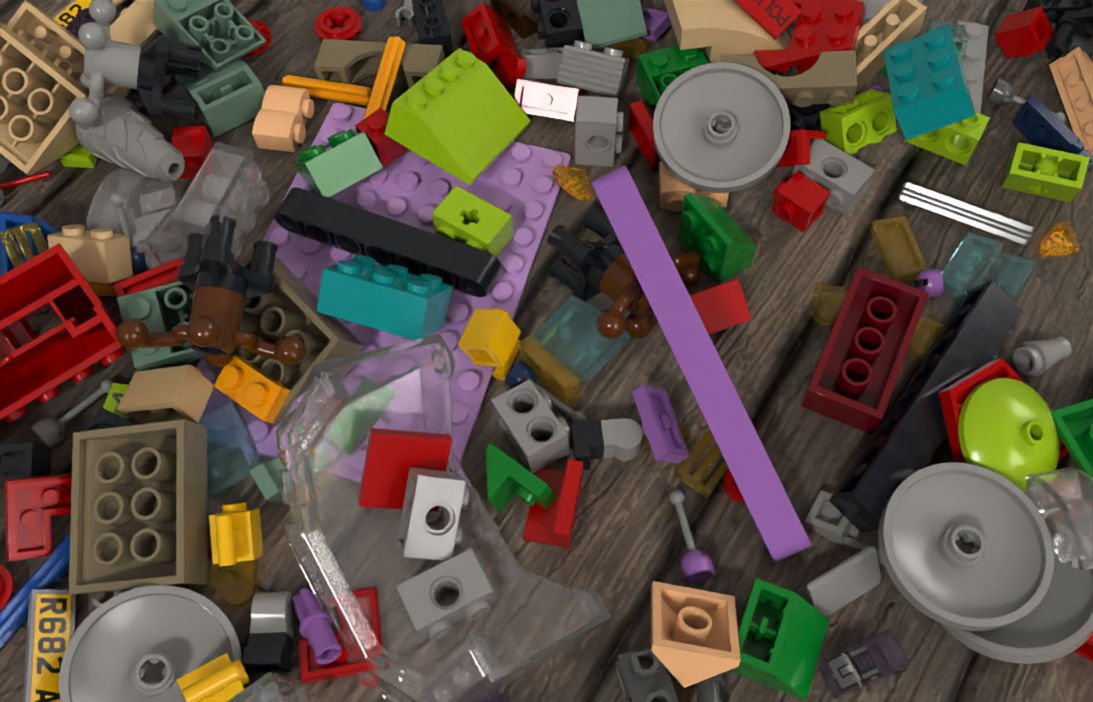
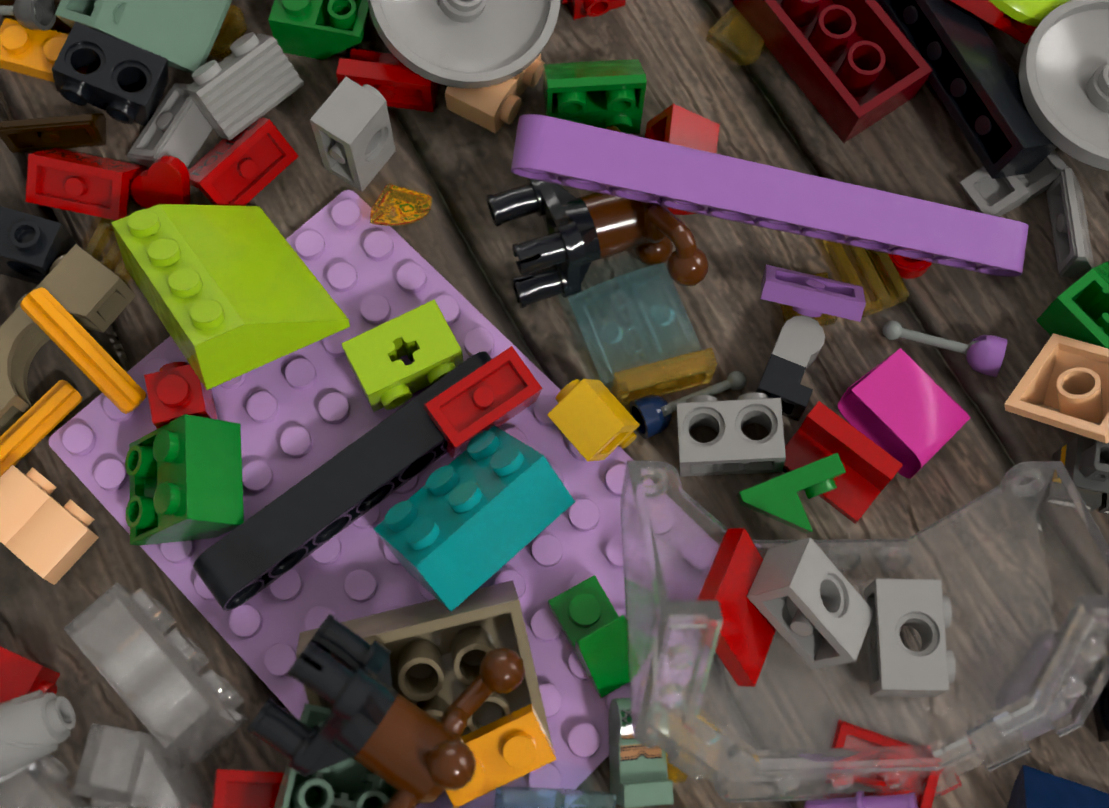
camera: 65 degrees left, 10 degrees up
(464, 269) = (483, 400): none -> red panel
(613, 525) = (903, 411): none -> dark pink piece

